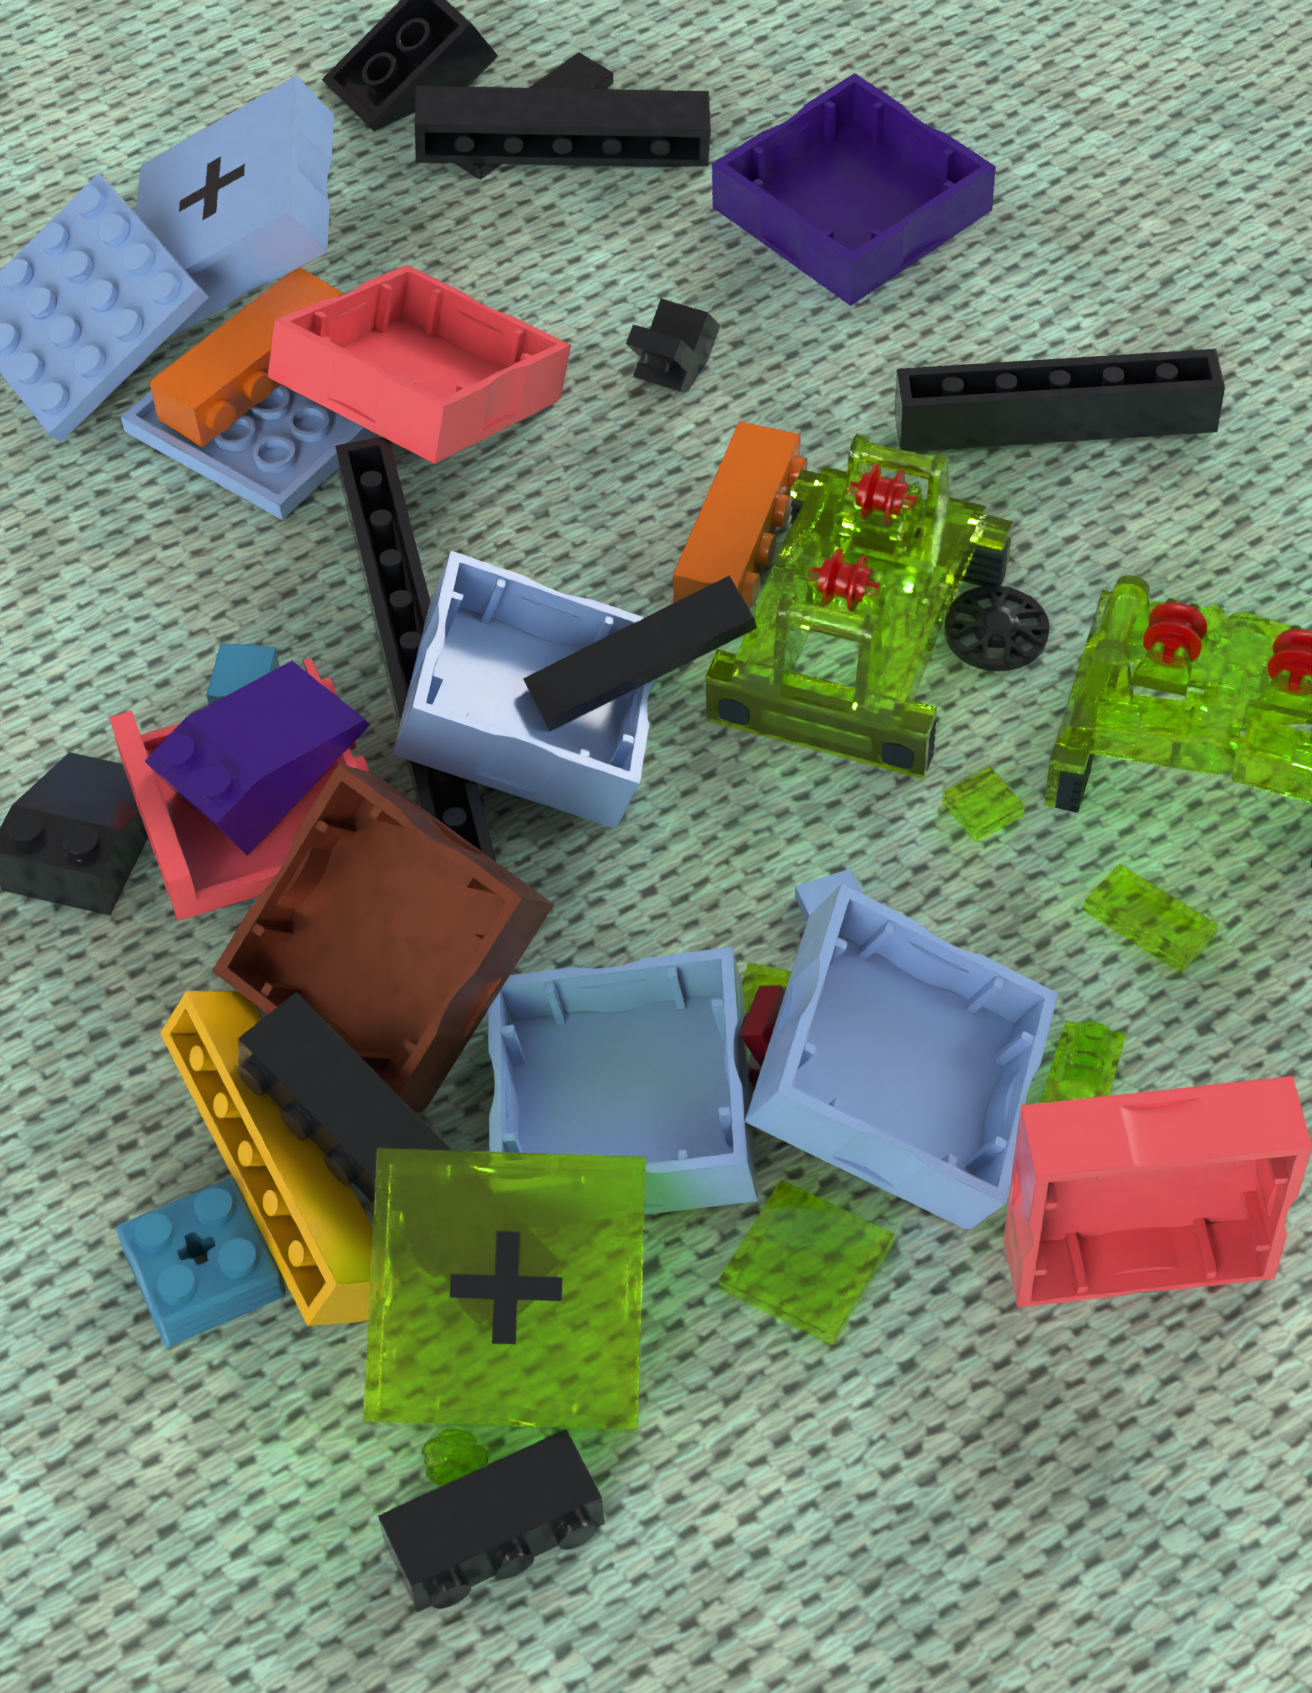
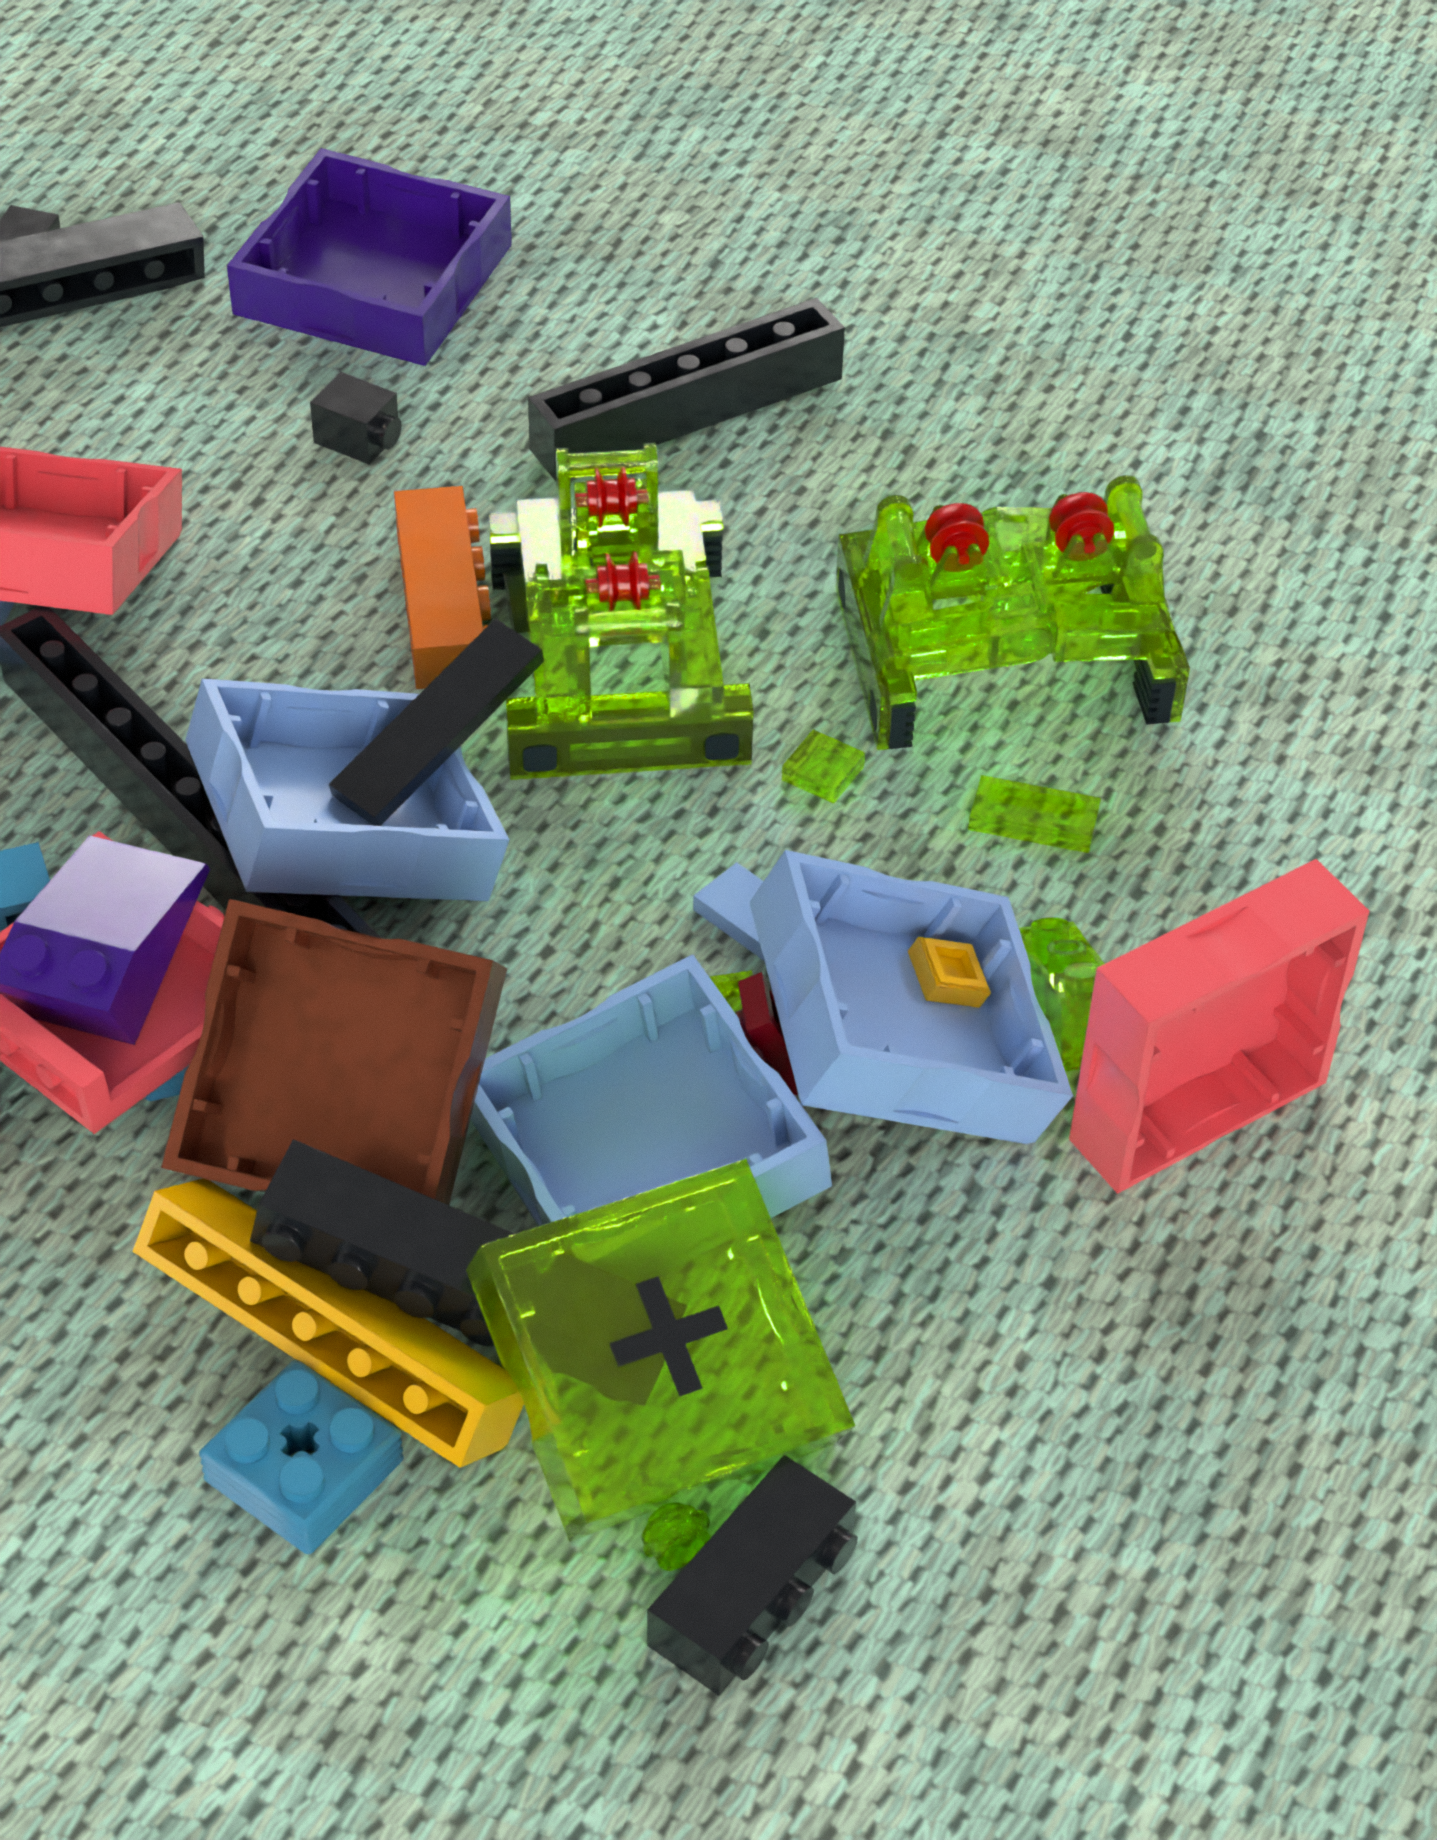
camera: 30 degrees left, 5 degrees down
(674, 346) = (279, 444): black brick -> none
(753, 339) = (355, 418): none -> black brick
(806, 1262) = (905, 1226): clear neon green tile -> none
(971, 1043) = (949, 972): none -> yellow tile
(996, 628) = (745, 608): black wheel -> none

